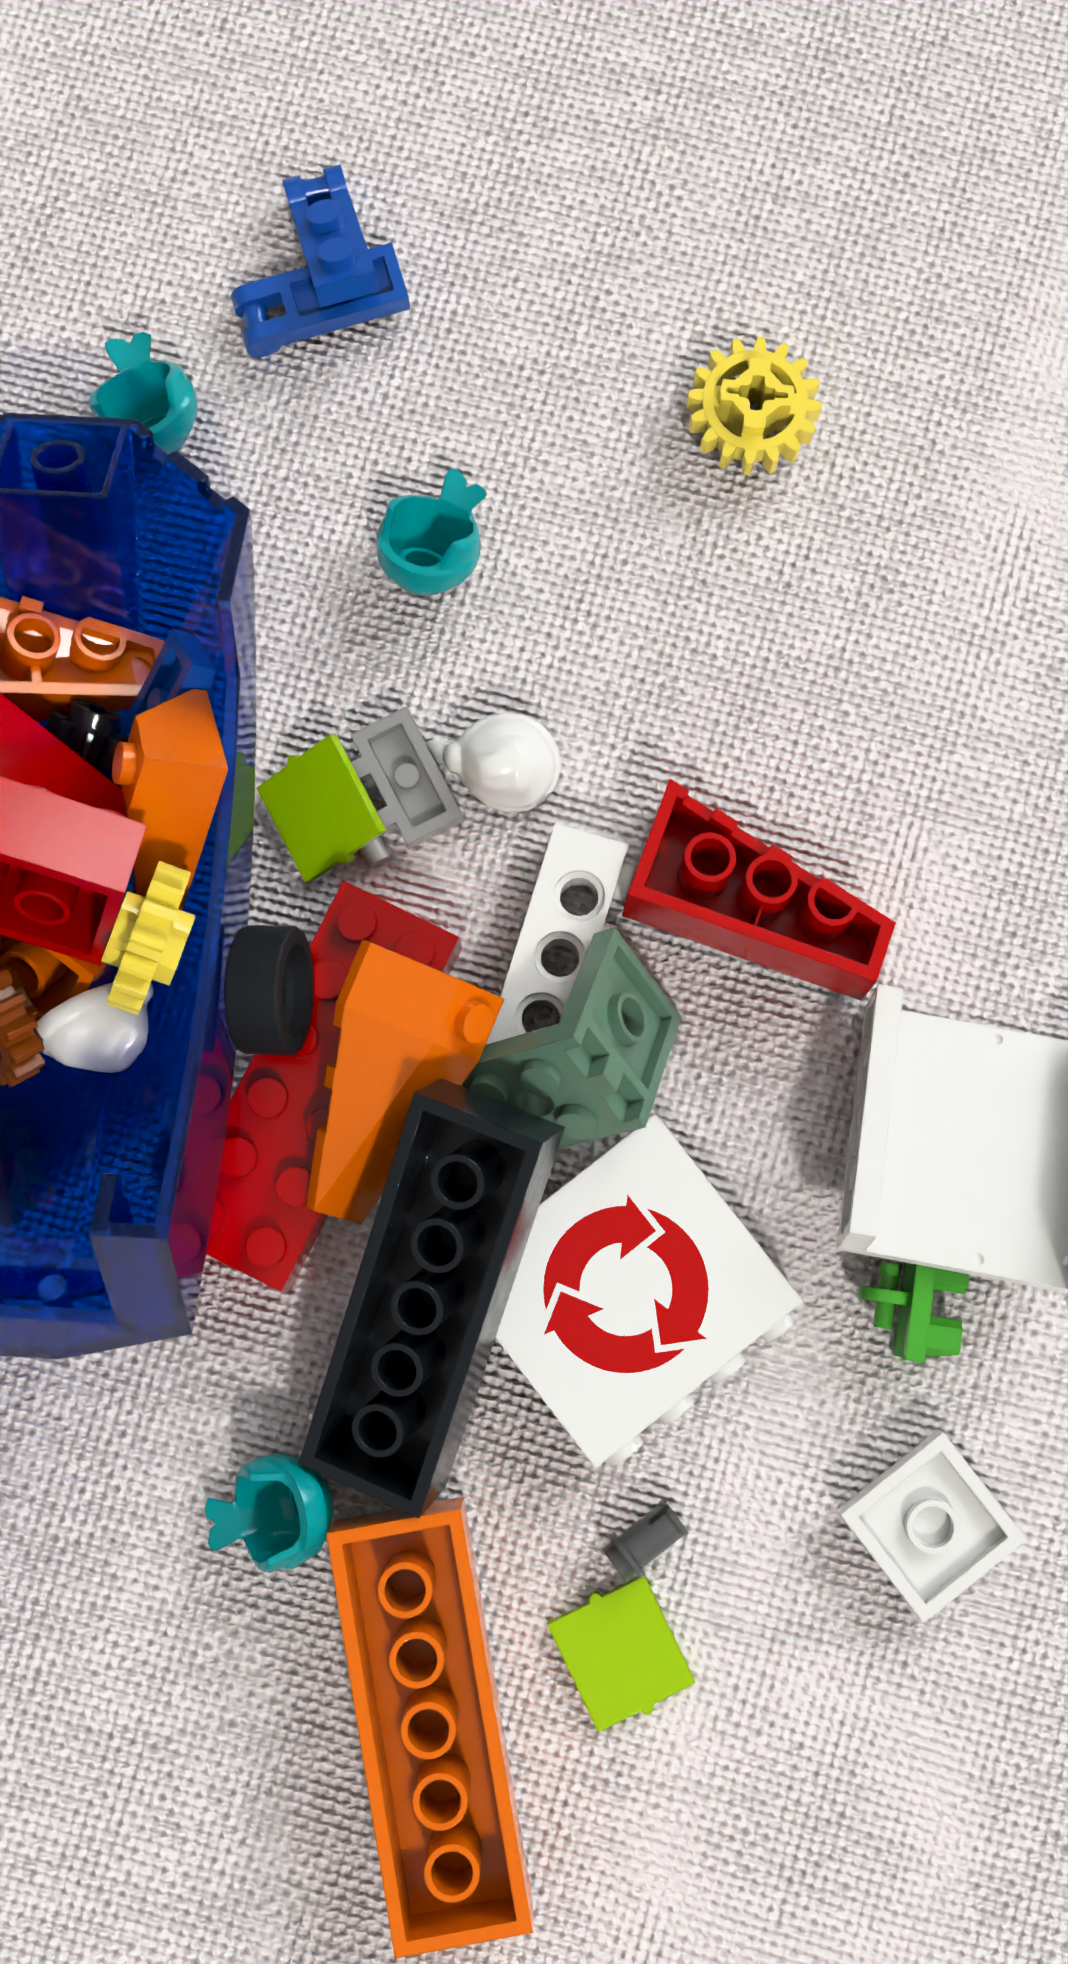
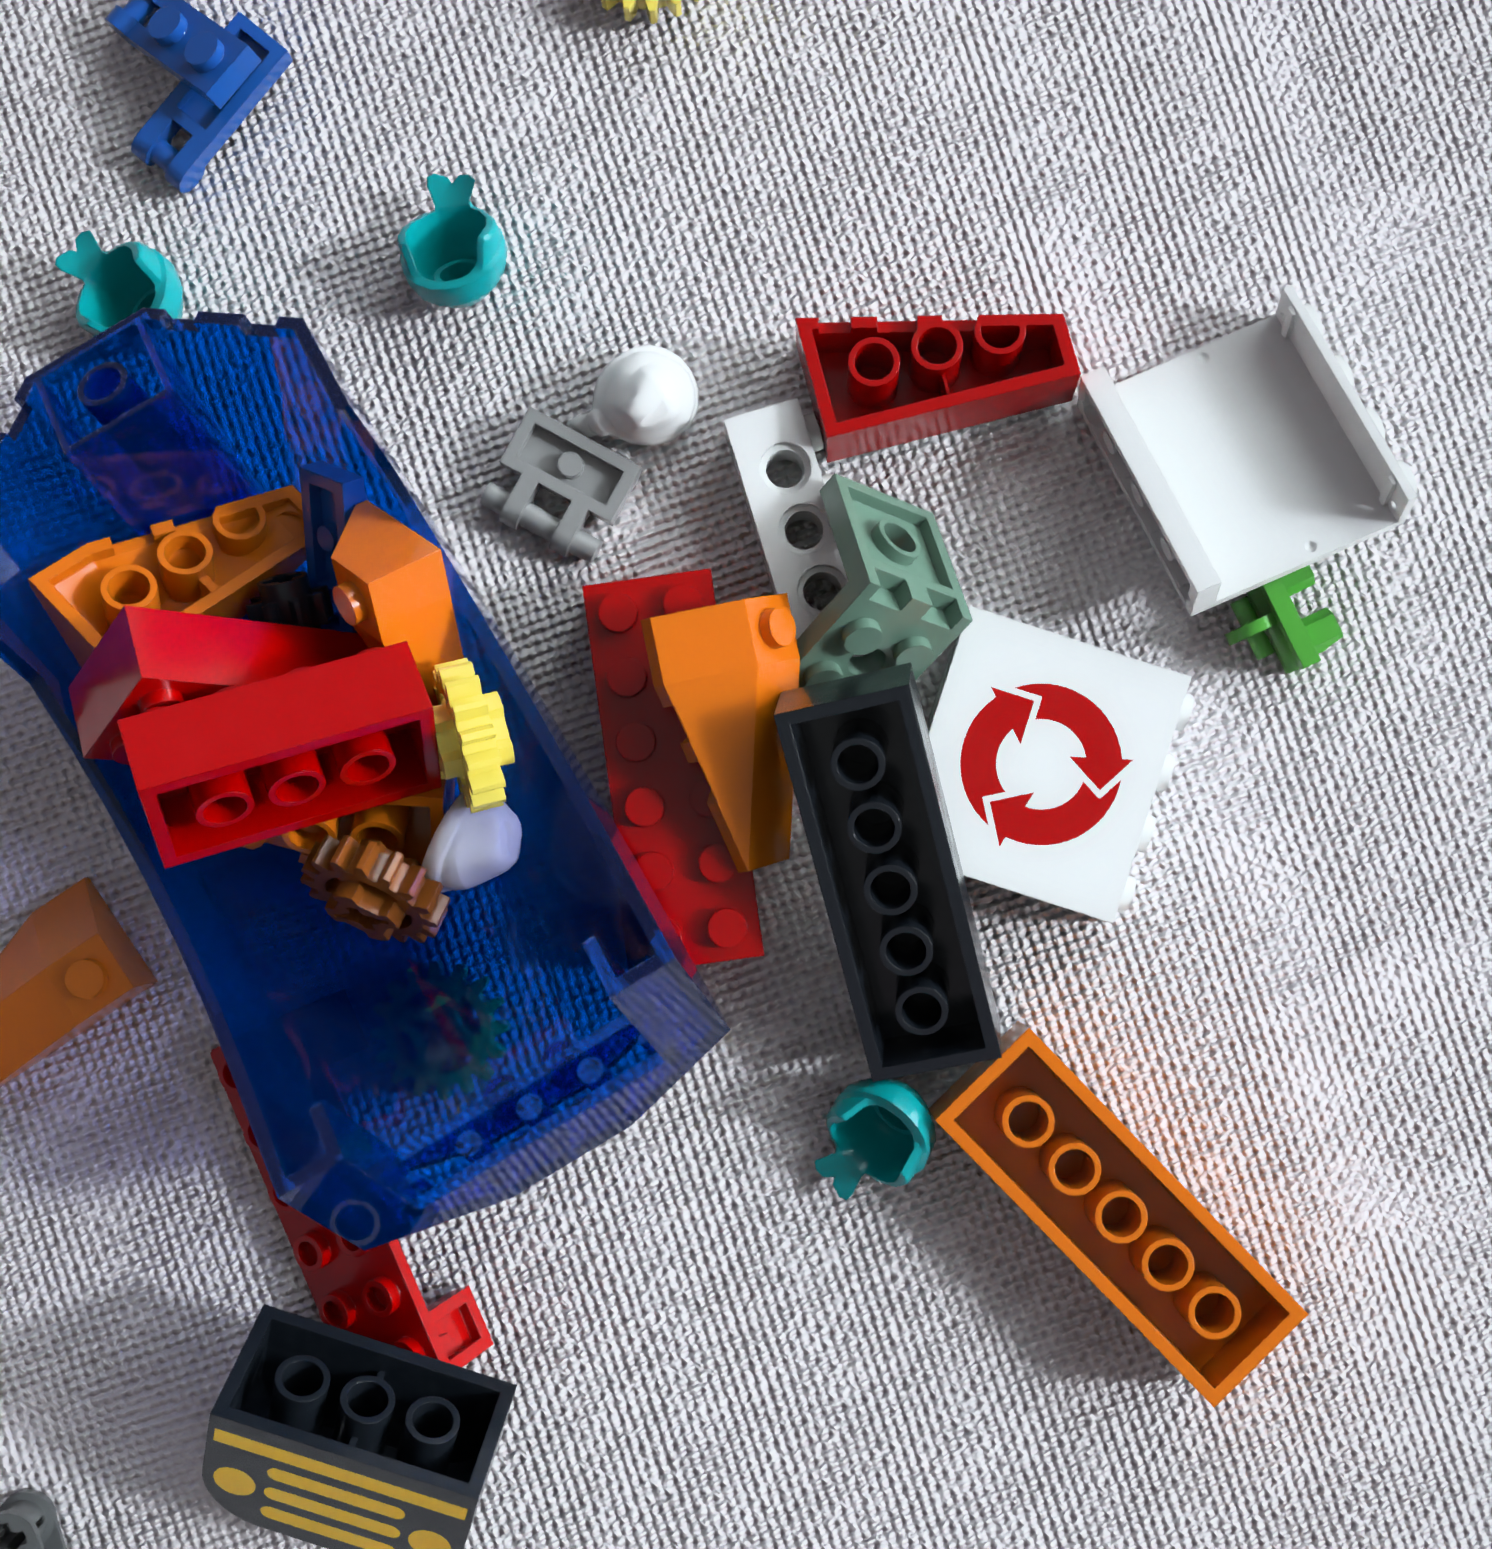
camera: 30 degrees left, 5 degrees up
(269, 990) = (591, 714): black tyre -> none
(321, 808) = (518, 540): lime piece -> none
(620, 1653) = (1226, 1056): lime piece -> none
(644, 1540) = (1187, 955): dark grey pin -> none
(931, 1525) = (1408, 788): white plate -> none

